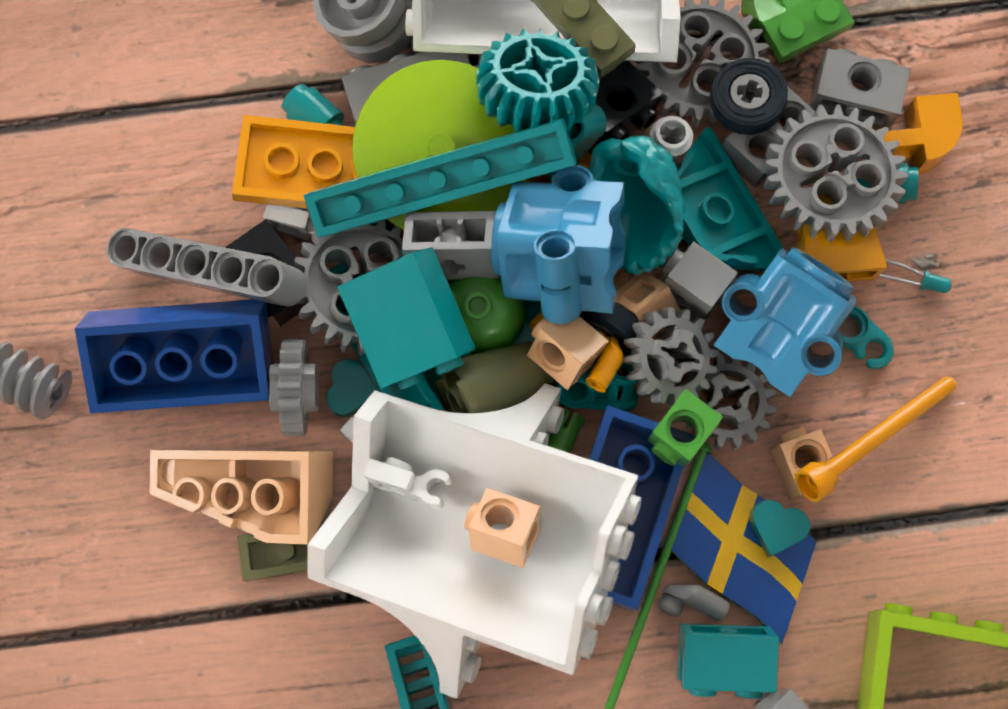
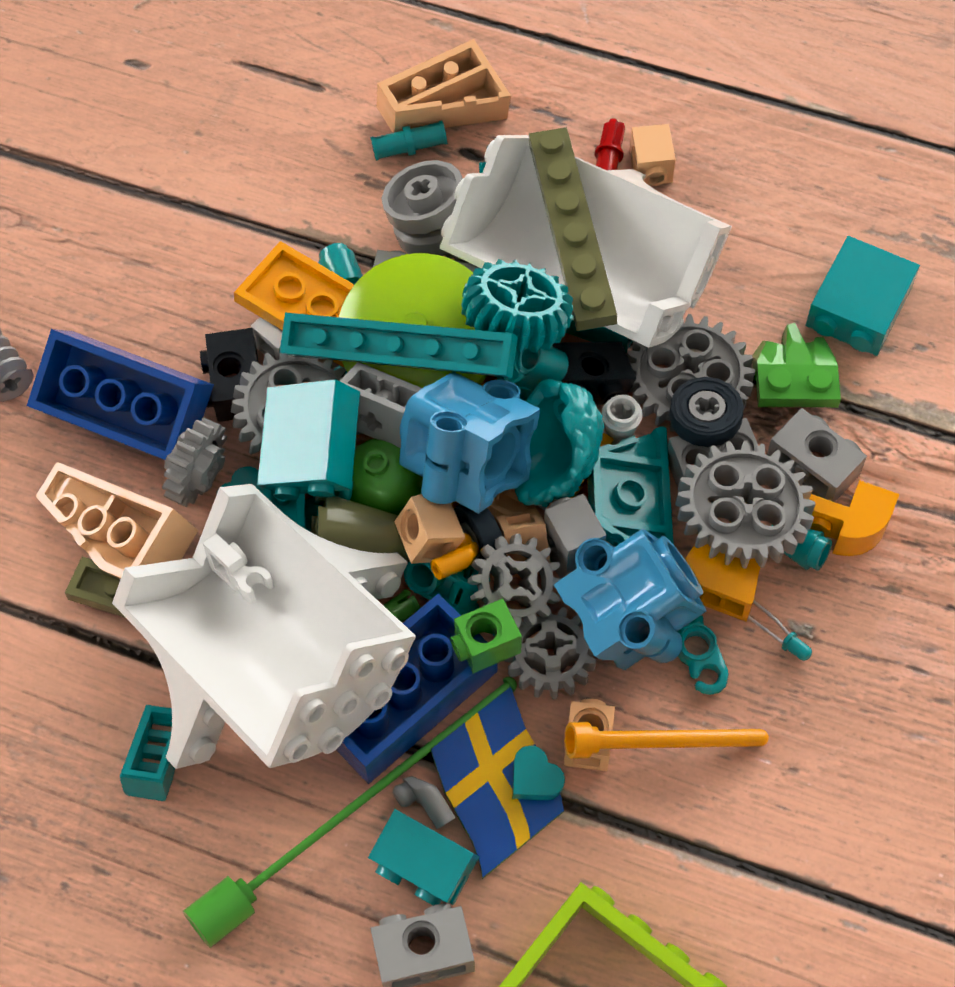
camera: 30 degrees right, 15 degrees down
(207, 266) = (183, 338): light grey beam -> none
(510, 544) = (289, 636): light nougat brick -> none

